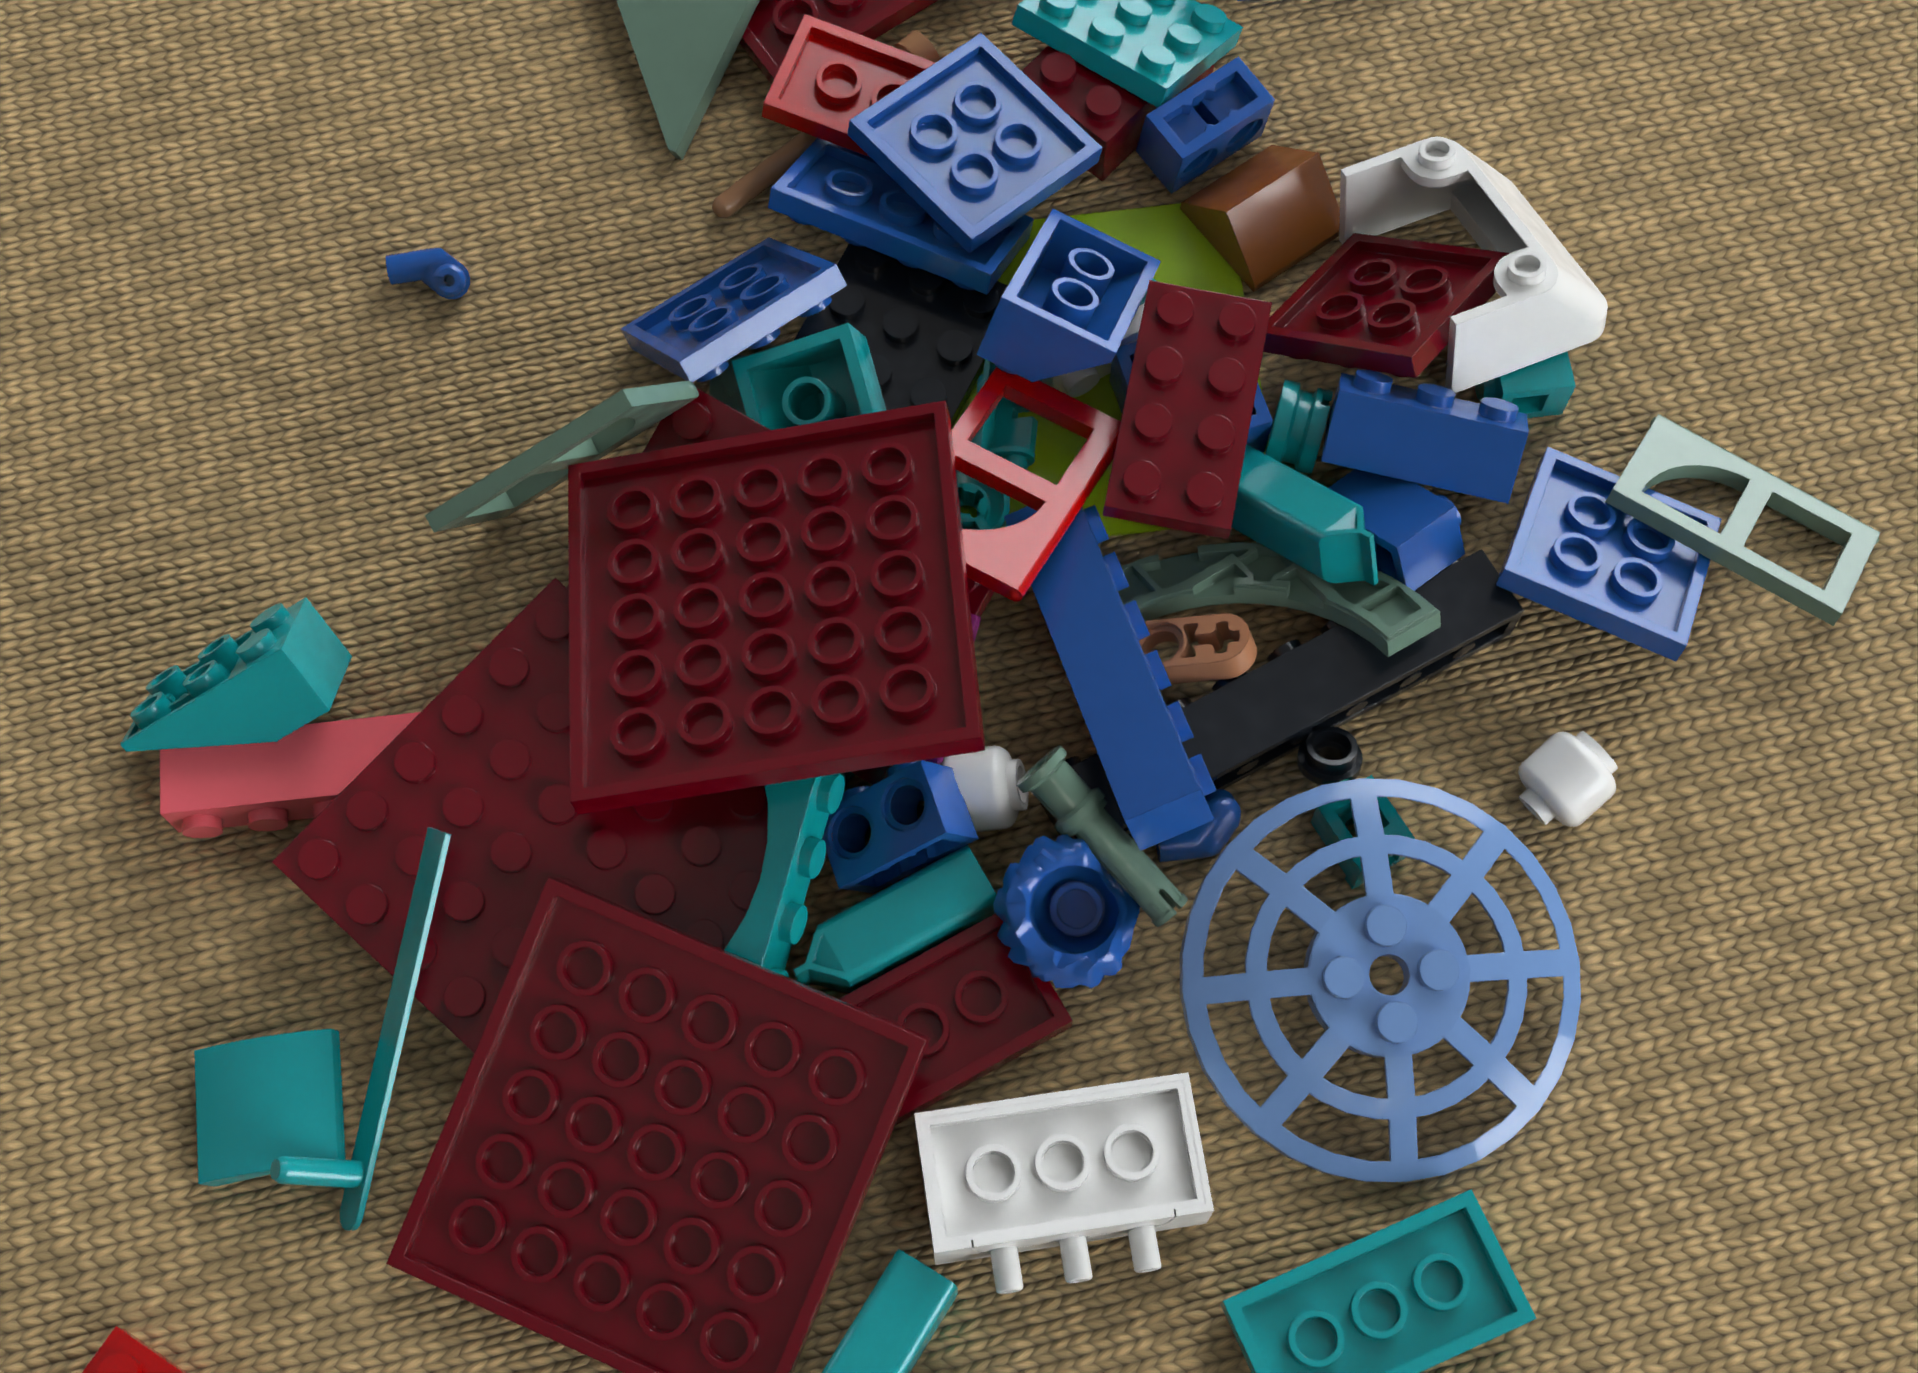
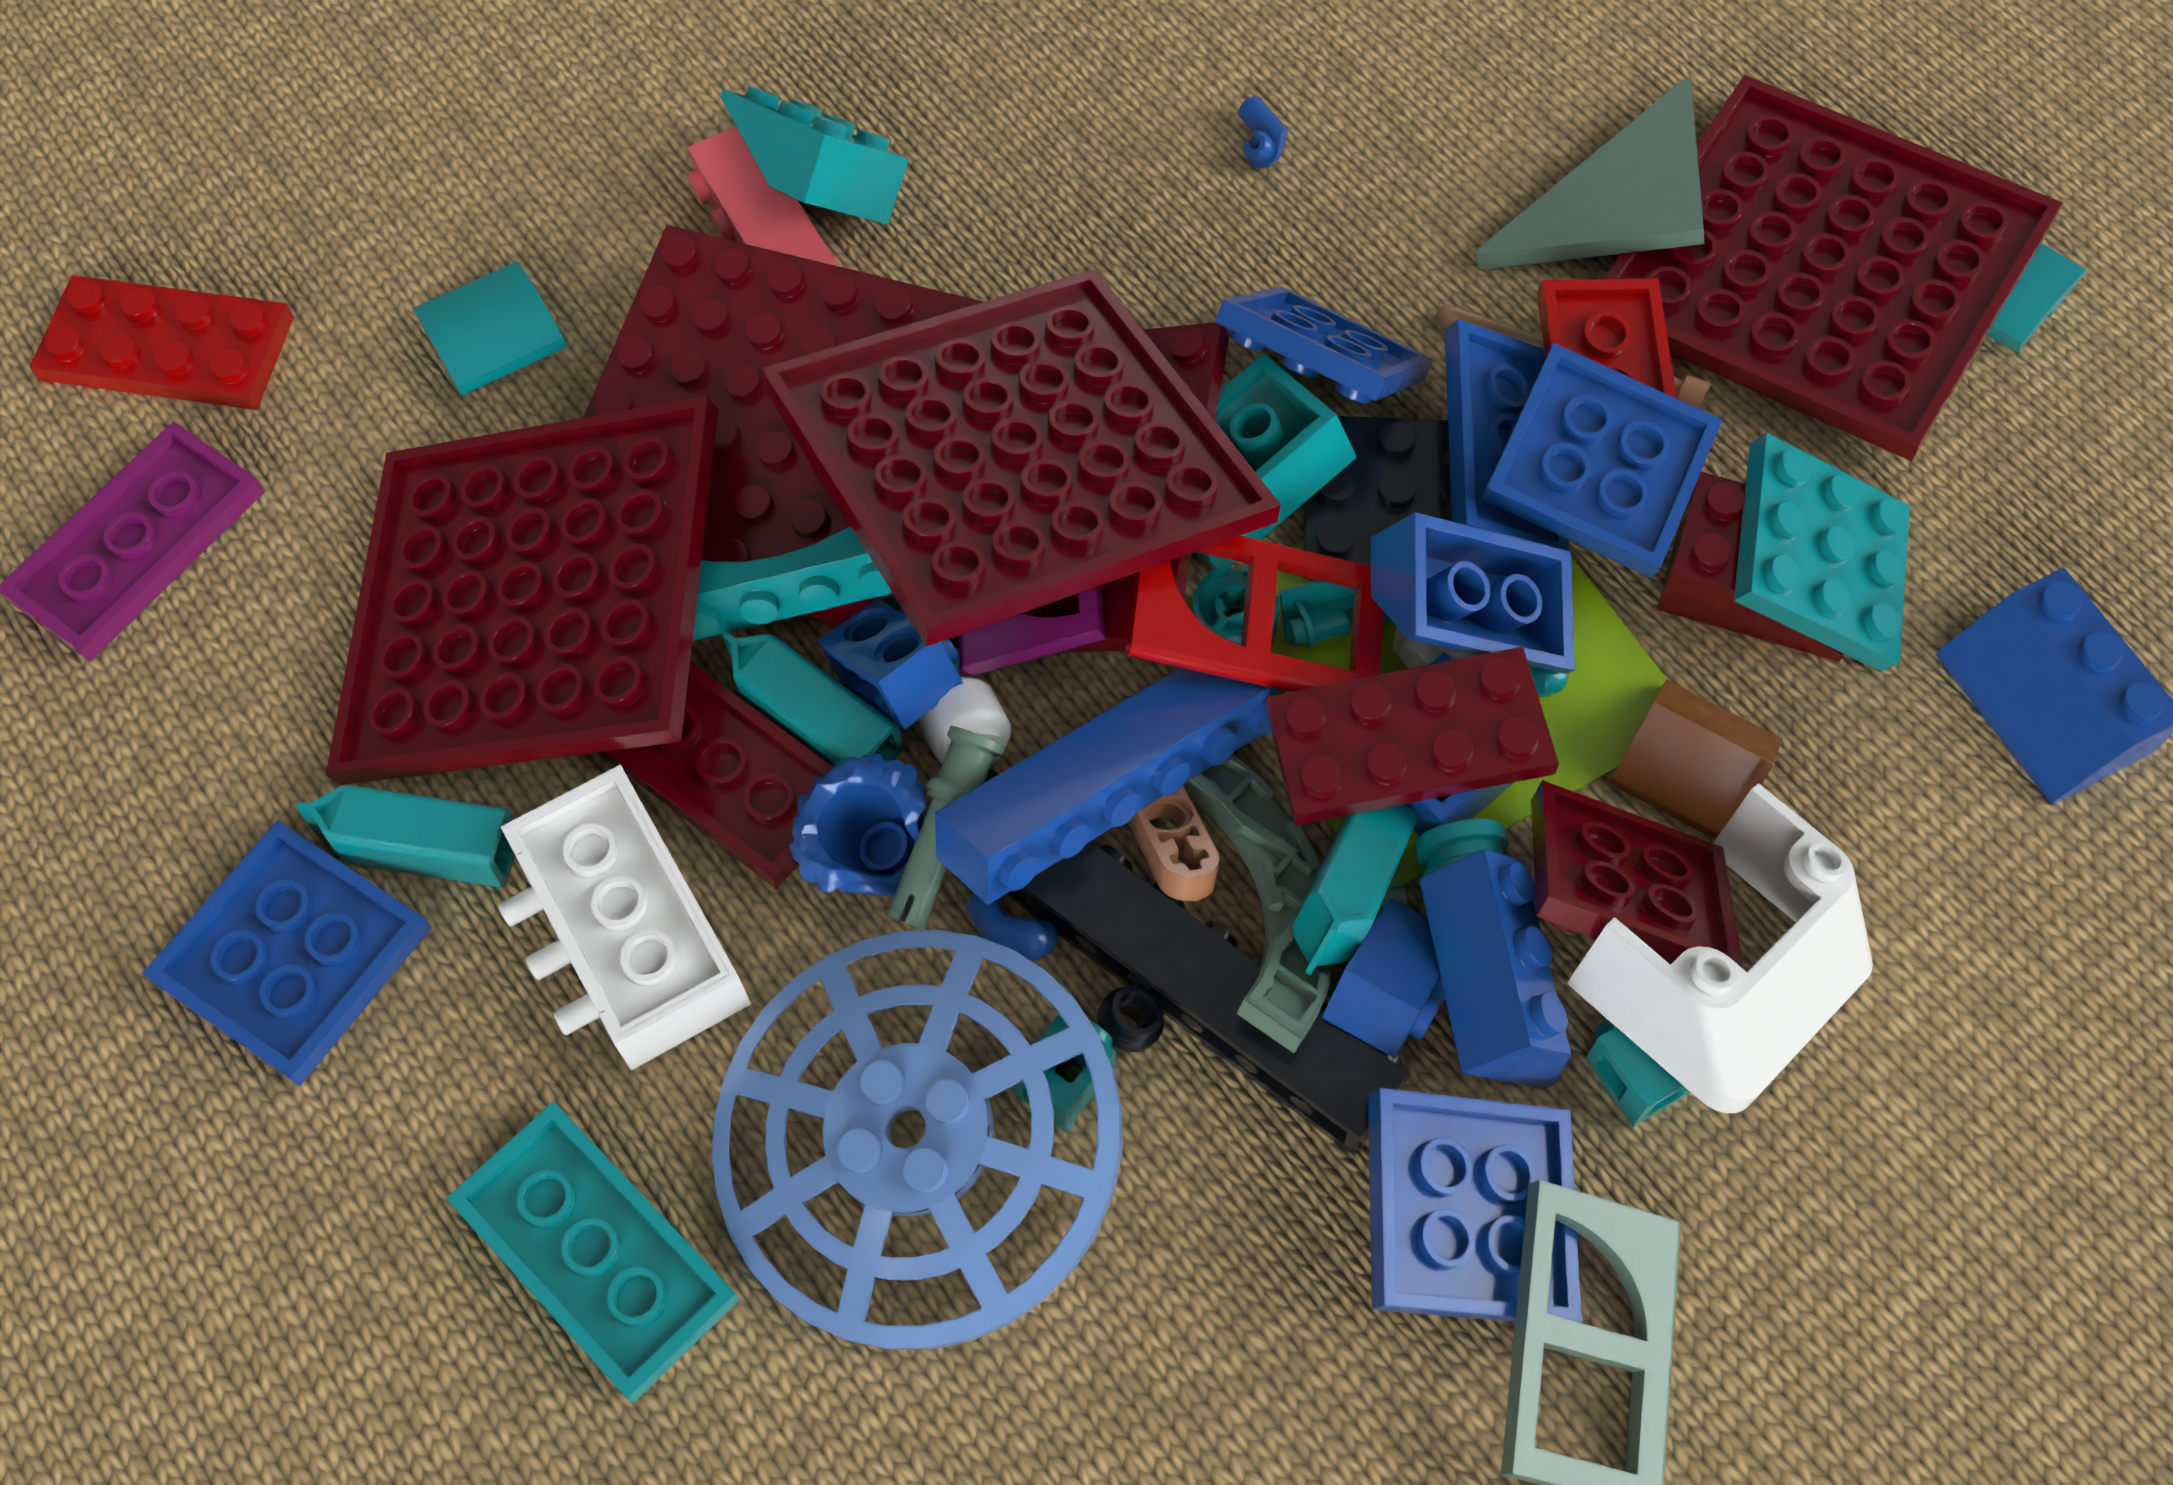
camera: 70 degrees right, 5 degrees down
(357, 1173) = (449, 393): teal piece -> none
(547, 462) = (1091, 240): sand green window -> none
(1204, 124) = (1754, 658): blue brick -> none
(1567, 779) = (1204, 1251): white head -> none

